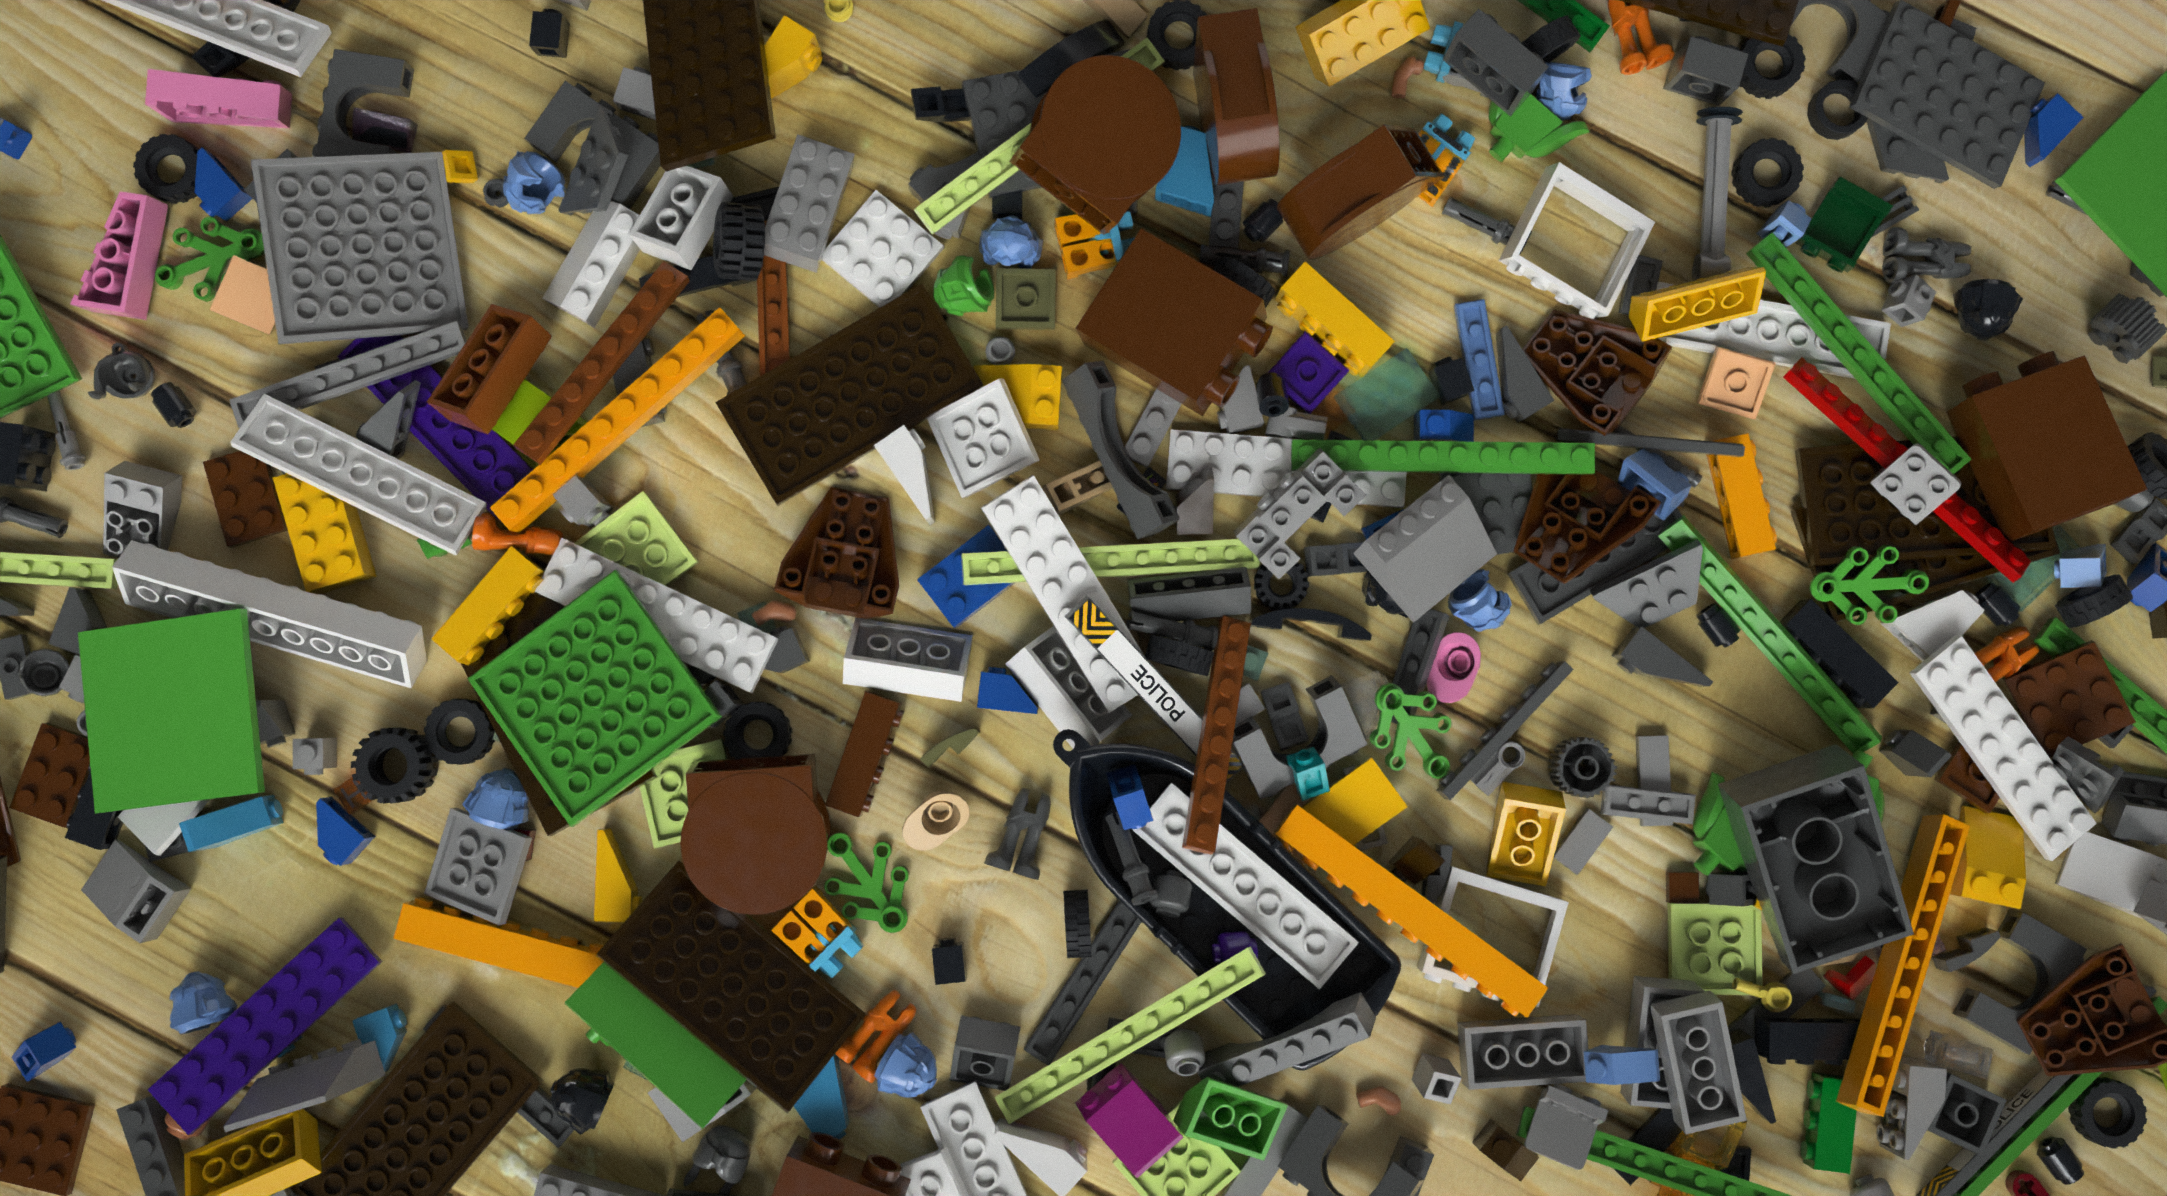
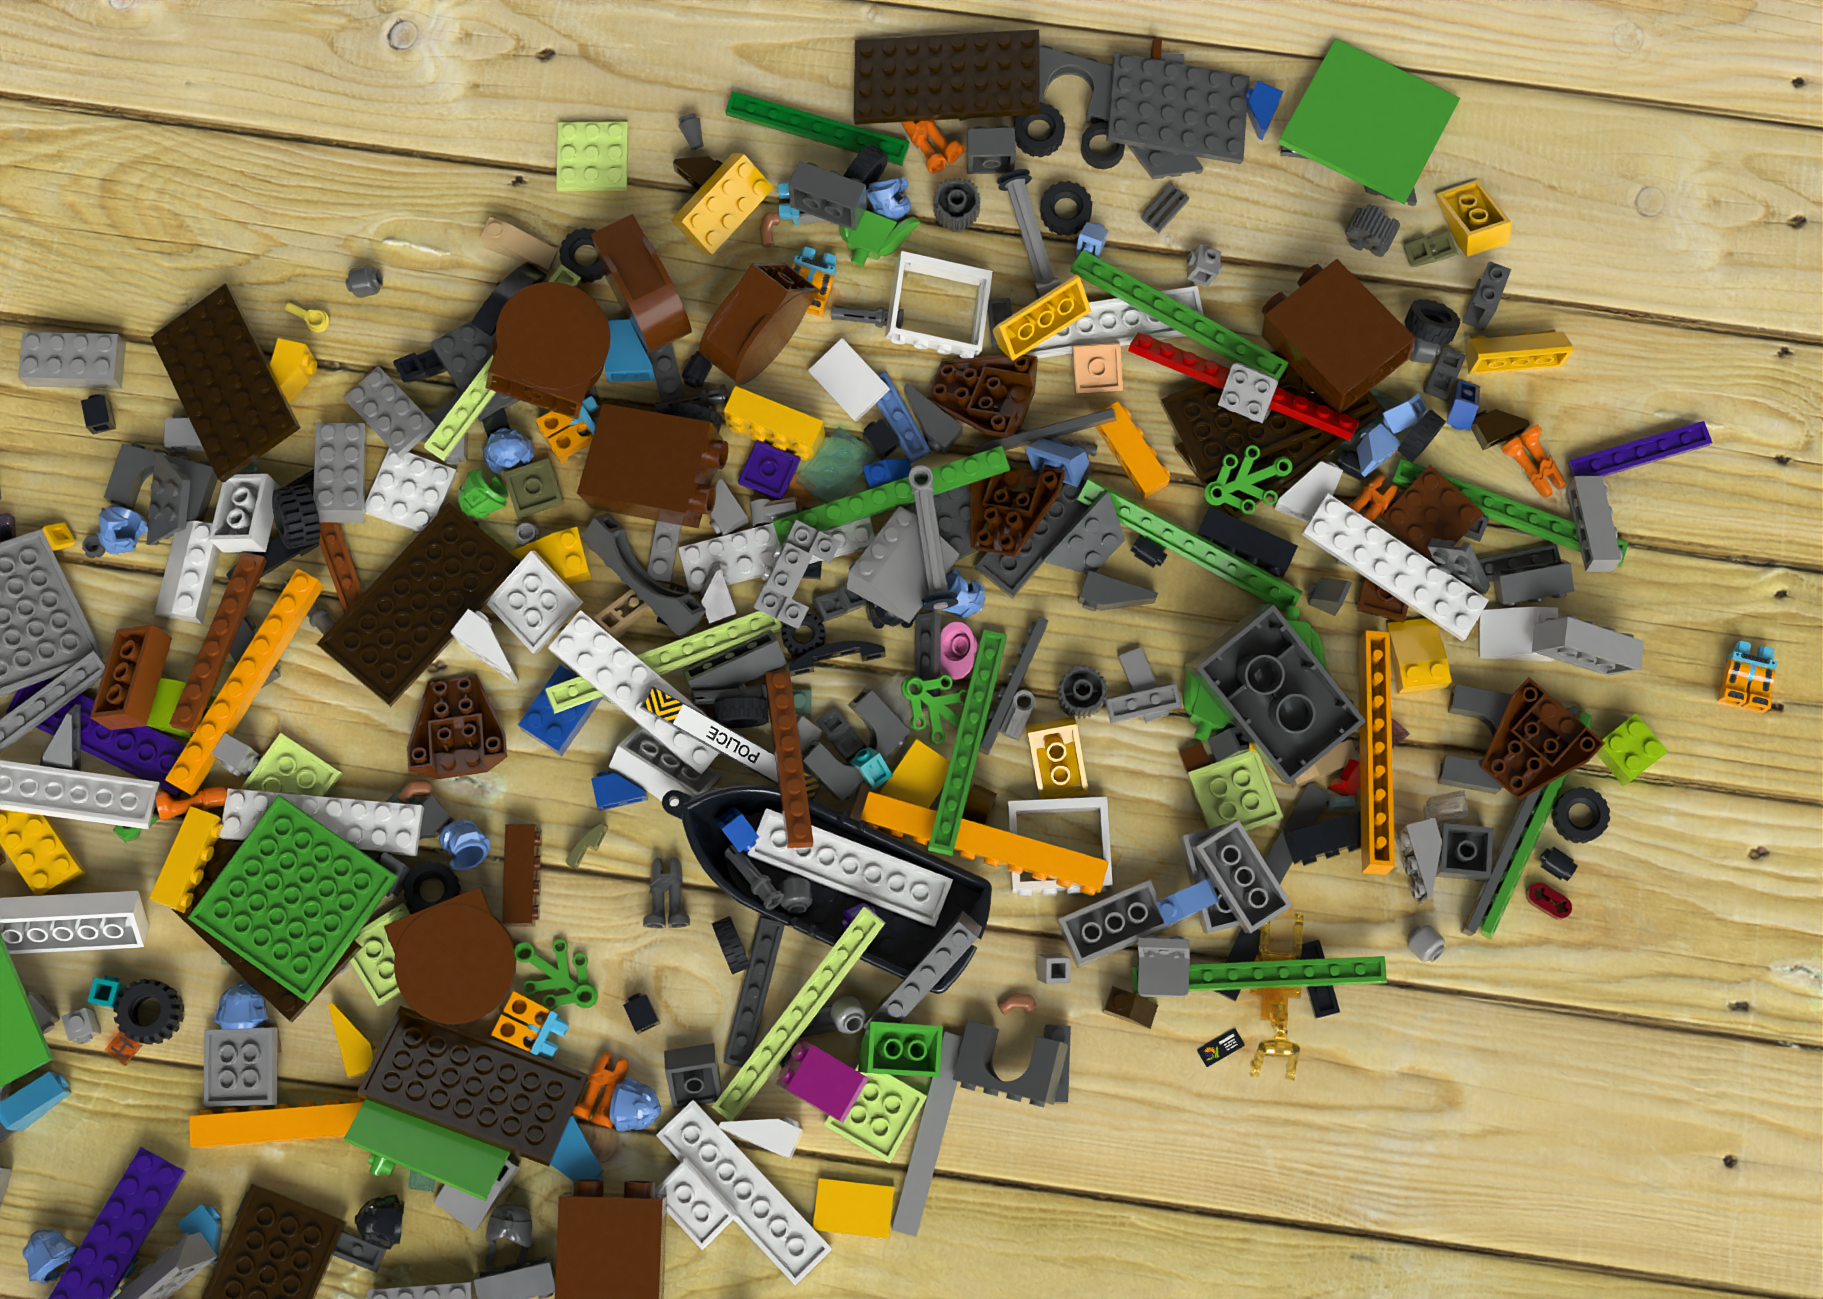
camera: 15 degrees left, 10 degrees down
(339, 833) = (121, 1083): blue slope -> none
(352, 726) = (105, 991): none -> teal brick
(436, 732) = (176, 958): black tyre -> none
(812, 696) = (465, 844): none -> medium blue helmet
(887, 149) = (389, 412): none -> light grey plate
(907, 659) = (531, 791): white slope -> none
(935, 820) = (593, 905): tan piece -> none
(1272, 395) = (746, 494): black brick -> none
(1430, 787) = (967, 743): none -> bright green plate
(1434, 882) = (999, 818): dark grey slope -> none
(1438, 295) = (849, 379): none -> white tile
(1473, 532) = (938, 596): none -> light grey piece
(1582, 841) = (1104, 750): light grey tile -> none
(1629, 133) = (956, 216): none -> dark grey brick
(1750, 1074) = (1293, 881): black slope -> none
(1773, 996) = (1292, 814): light yellow plate -> none
(1828, 1126) = (1372, 901): green brick -> none
(1843, 225) = (1135, 227): dark green panel -> none
(1938, 253) = (1214, 222): dark grey piece -> none
(1971, 948) = (1429, 725): dark grey slope -> none
(1986, 307) = (1263, 250): black helmet -> none
(2034, 598) = (1375, 448): none -> light blue slope

